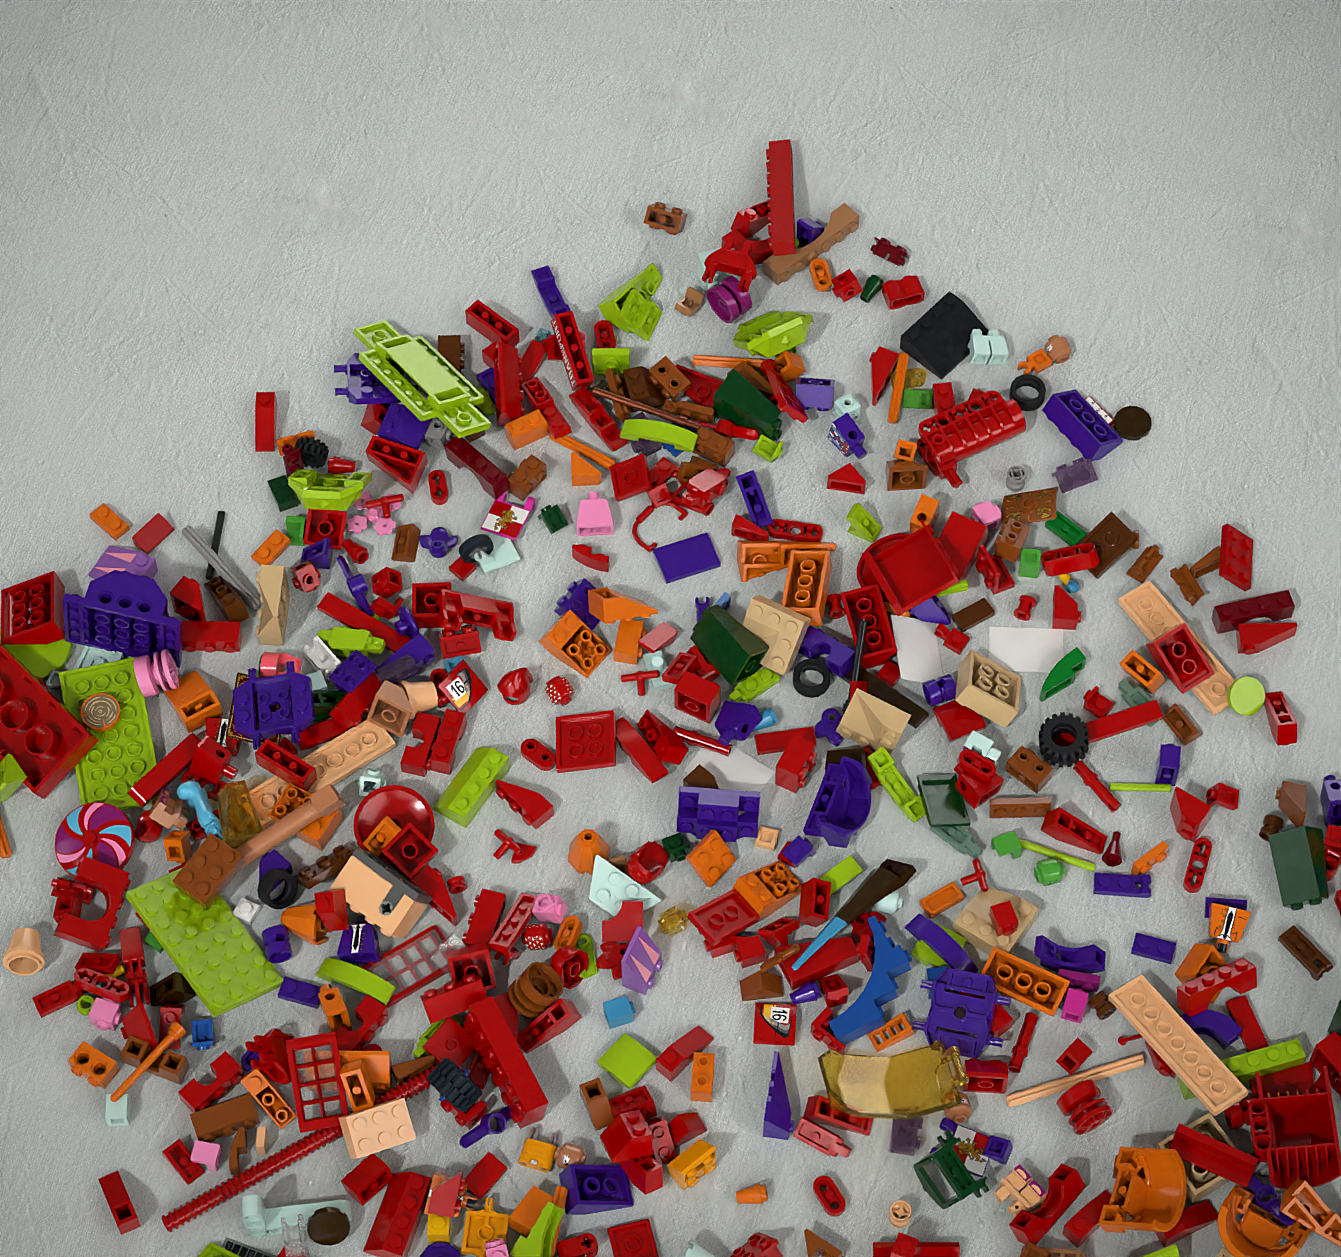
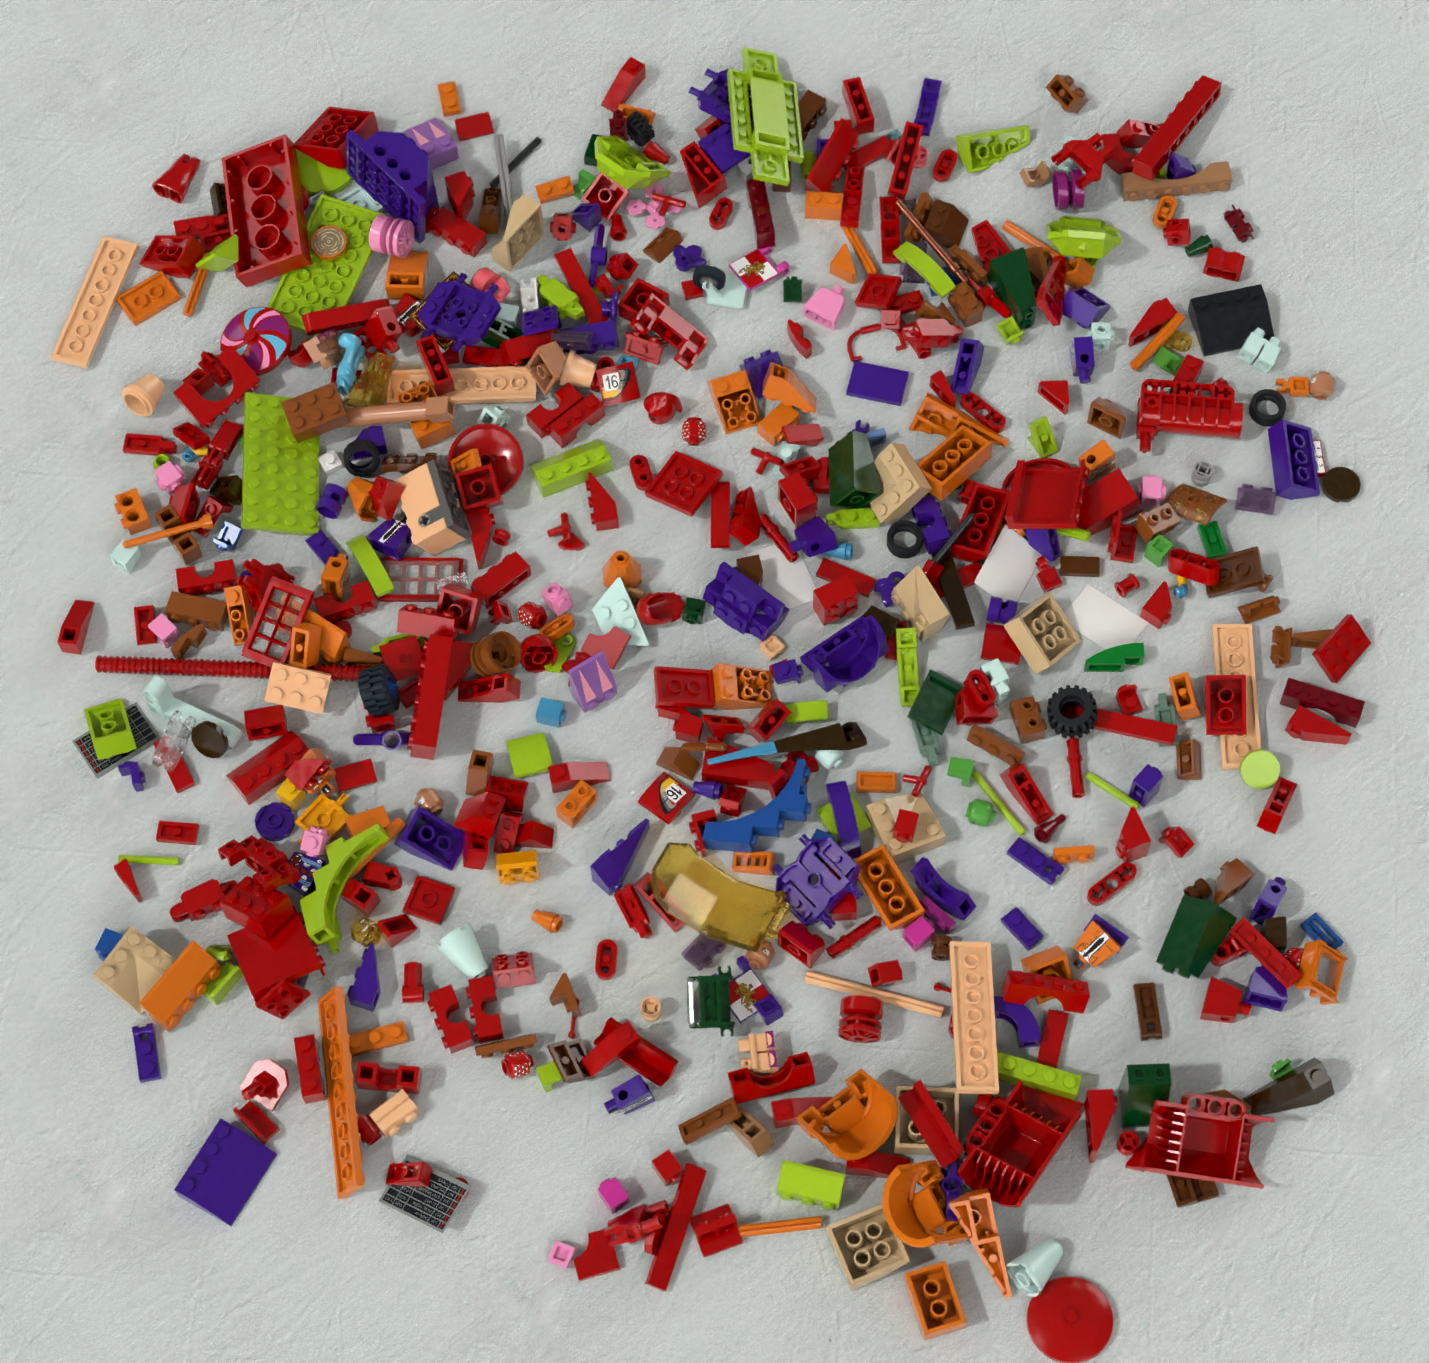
camera: 35 degrees right, 5 degrees up
(95, 978) = (180, 461): red beam -> none
(178, 846) = (312, 378): orange brick -> none
(261, 1140) = (212, 644): light nougat tile -> none
(513, 923) = (517, 593): red plate -> none
(527, 477) = (795, 244): dark orange brick -> none
(538, 1154) = (408, 784): light orange piece -> none
(608, 358) = (934, 185): lime tile -> none
(639, 315) = (986, 162): lime slope -> none
(669, 379) = (967, 227): dark orange brick -> none
(673, 921) = (644, 667): clear yellow head -> none
(711, 858) = (711, 635): orange plate -> none
(905, 450) = (1122, 397): orange brick -> none

